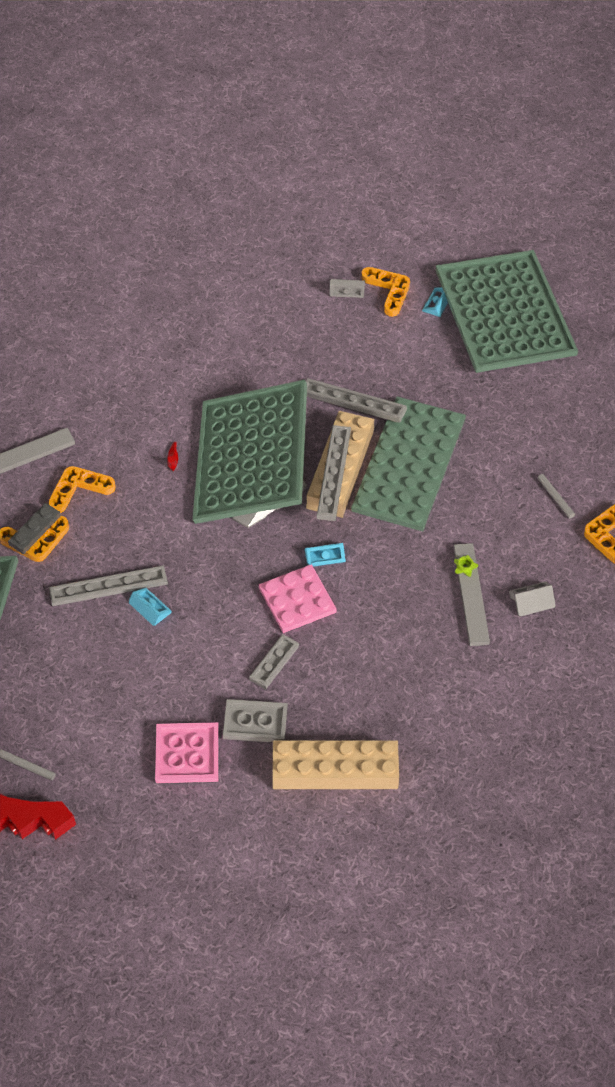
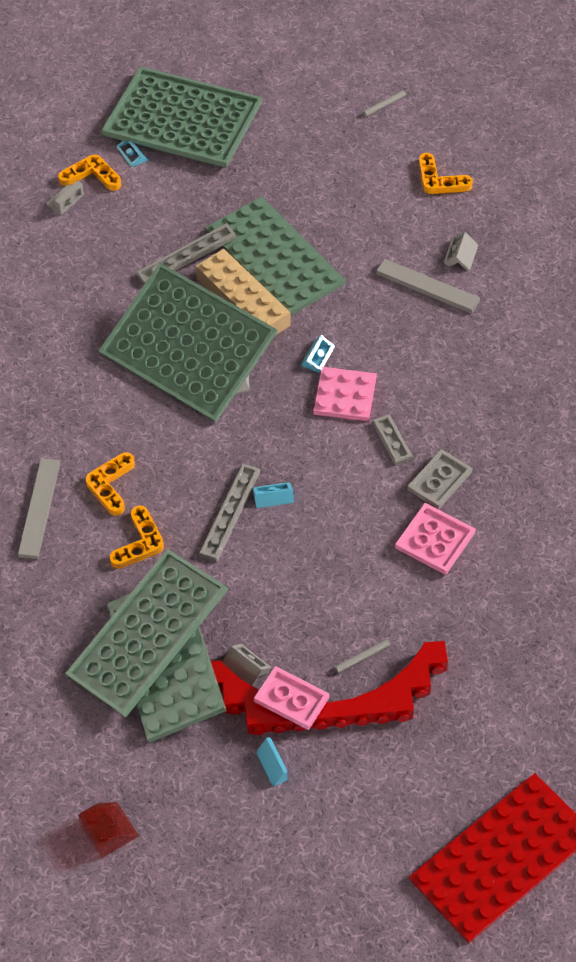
camera: 55 degrees left, 0 degrees up
(34, 528) = (132, 532): dark grey plate -> none
(172, 458) = (136, 403): red bar -> none
(333, 473) = (258, 299): light grey tile -> none
(335, 765) = (518, 448): tan brick -> none
(465, 560) = (402, 269): lime plate -> none
(556, 496) = (381, 188): light grey bar -> none

